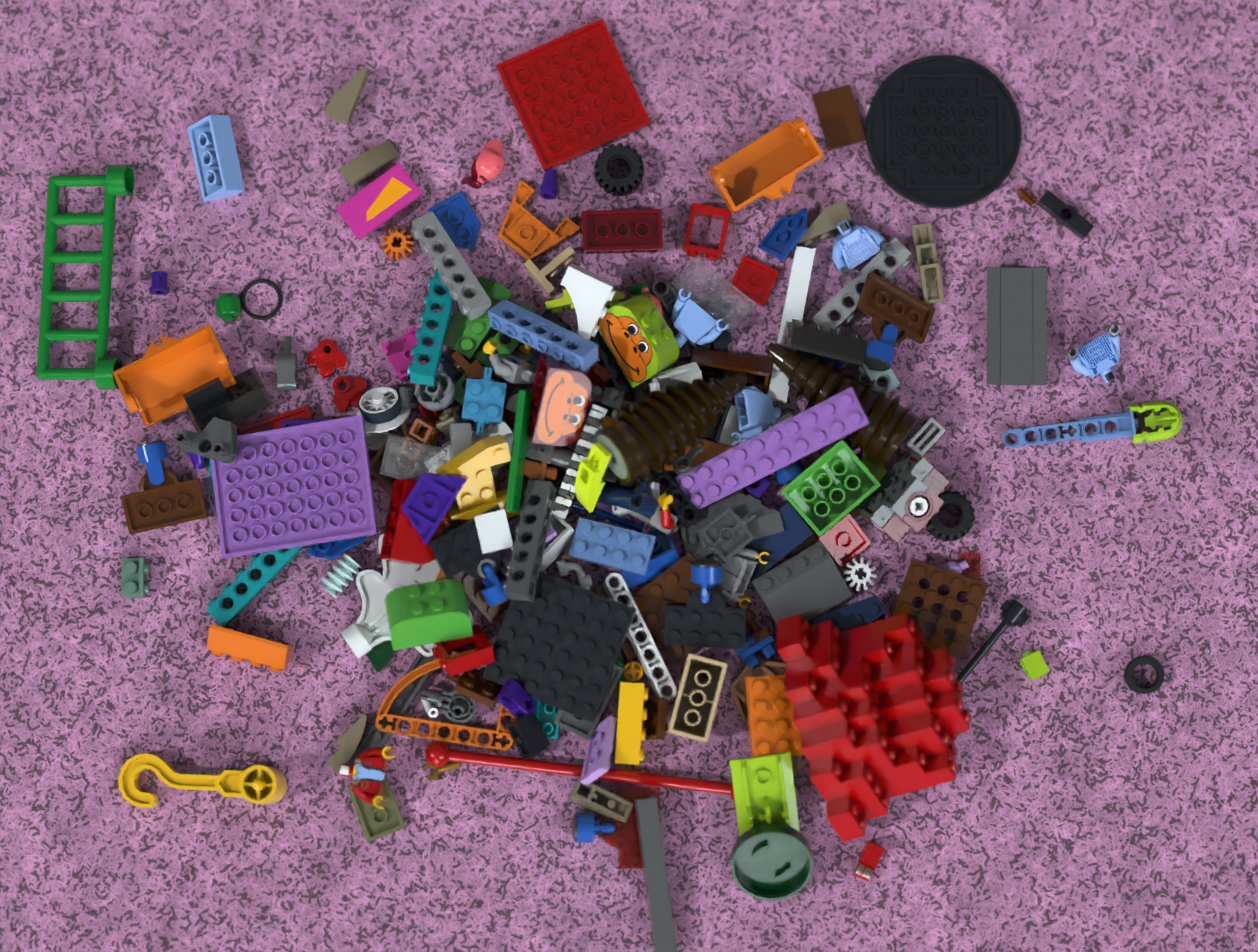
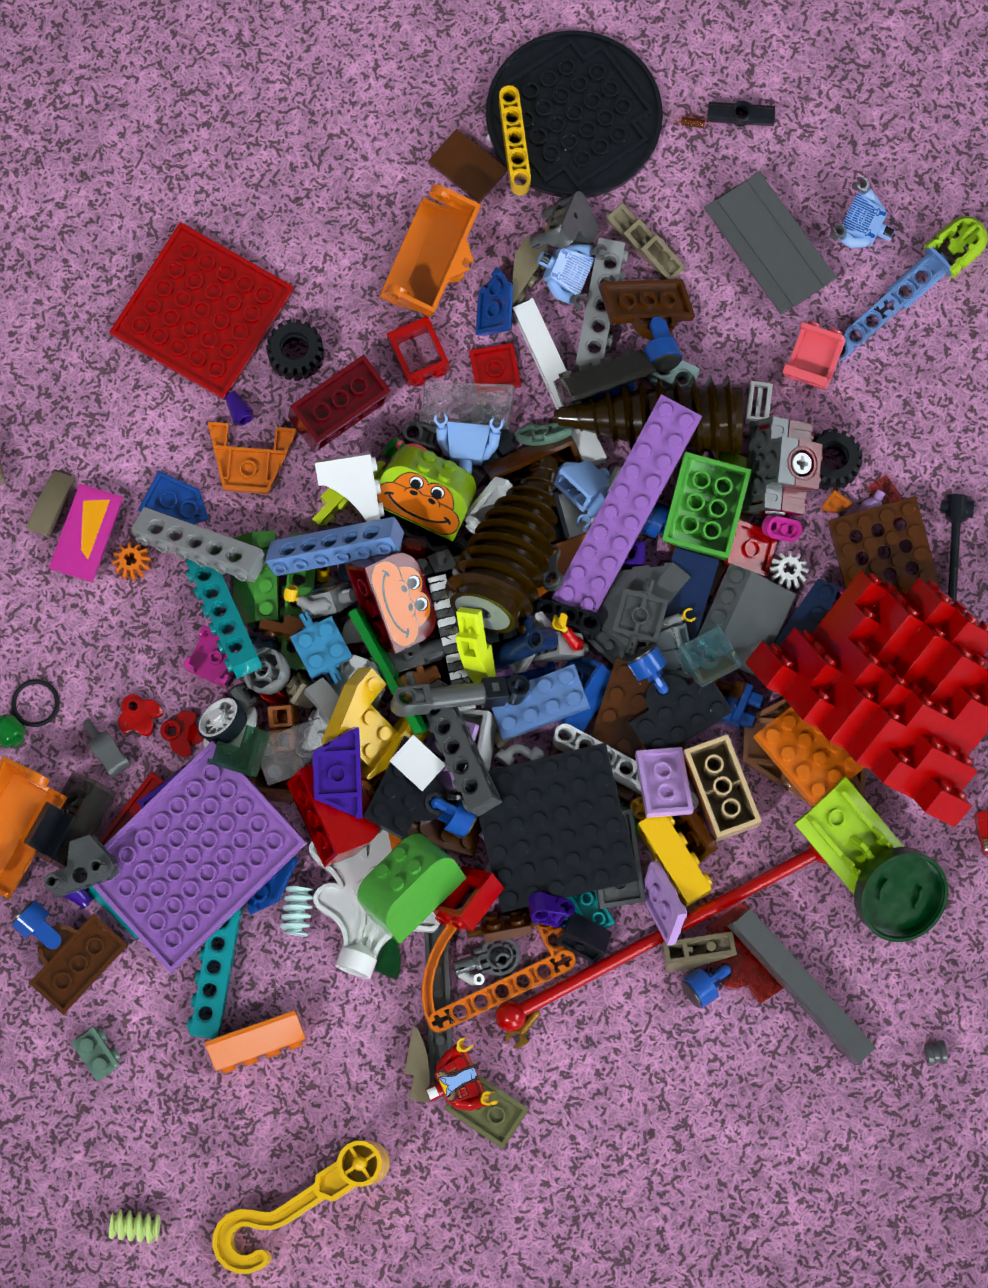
camera: 30 degrees left, 5 degrees down
(77, 717) = (134, 1226): none -> yellowish green piece
(375, 444) = (245, 758): none -> clear green panel
(487, 165) = (166, 430): coral hair -> none
(550, 270) = (295, 487): tan bracket -> none
(577, 515) = (488, 693): none -> dark grey piece
(659, 665) = (664, 782): none -> lavender plate
(751, 353) = (541, 434): none -> sand green tile
(753, 599) = (708, 657): none -> clear light blue slope
(876, 540) = (781, 528): none -> dark pink plate
(881, 211) = (568, 223): none -> dark grey piece
(885, 114) = (514, 130): none -> yellow beam
(929, 548) = (836, 502): none -> orange tile
(990, 431) = (815, 355): none -> coral panel

